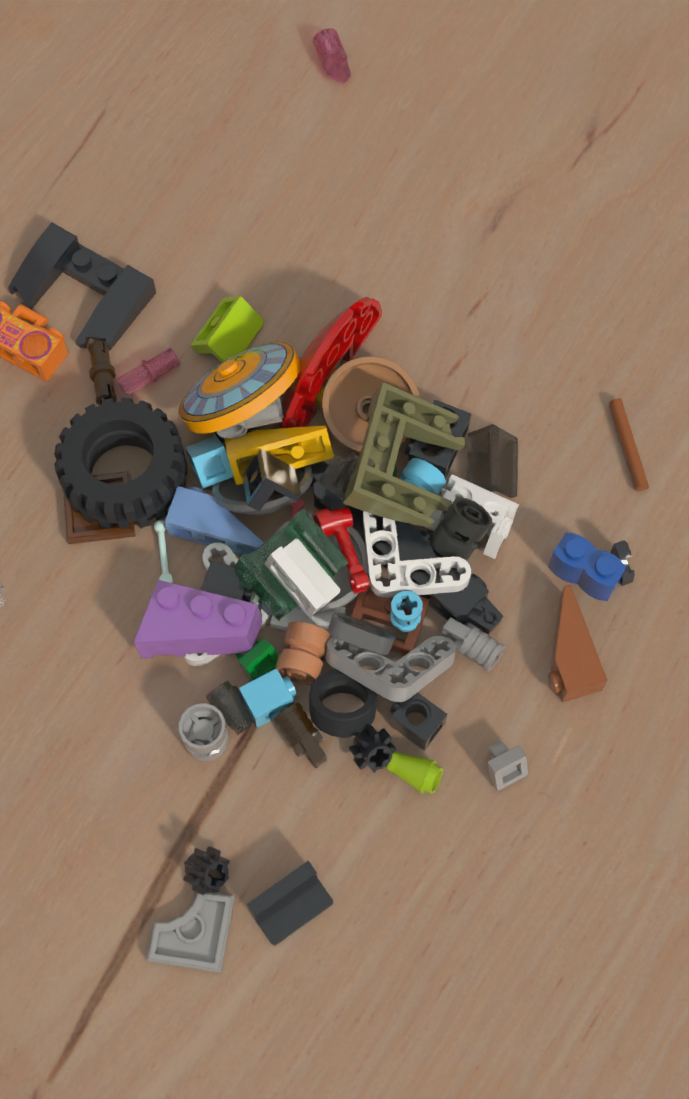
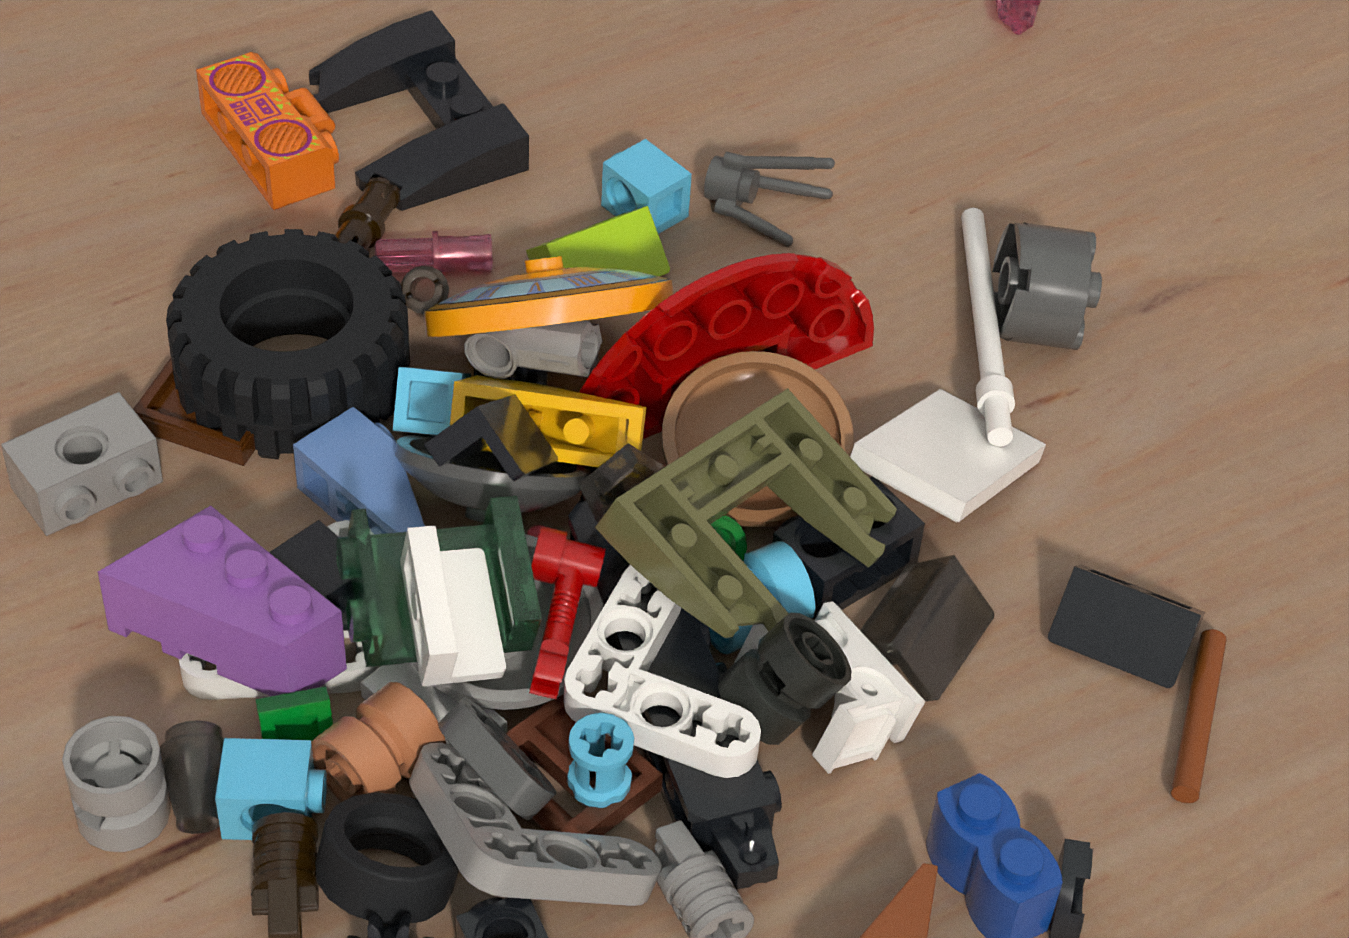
camera: 25 degrees right, 20 degrees down
(67, 561) = (82, 463): none -> light grey brick
(160, 527) = (287, 471): light aqua hinge -> none
(166, 400) = (416, 275): none -> dark brown pin
(225, 278) = (646, 178): none -> medium azure brick
(266, 252) = (734, 181): none -> dark grey plant
(449, 248) = (1045, 284): none -> dark grey brick
(457, 367) = (944, 456): none -> white tile
(459, 321) = (994, 390): none -> white bar
(577, 415) = (1125, 626): none -> black panel

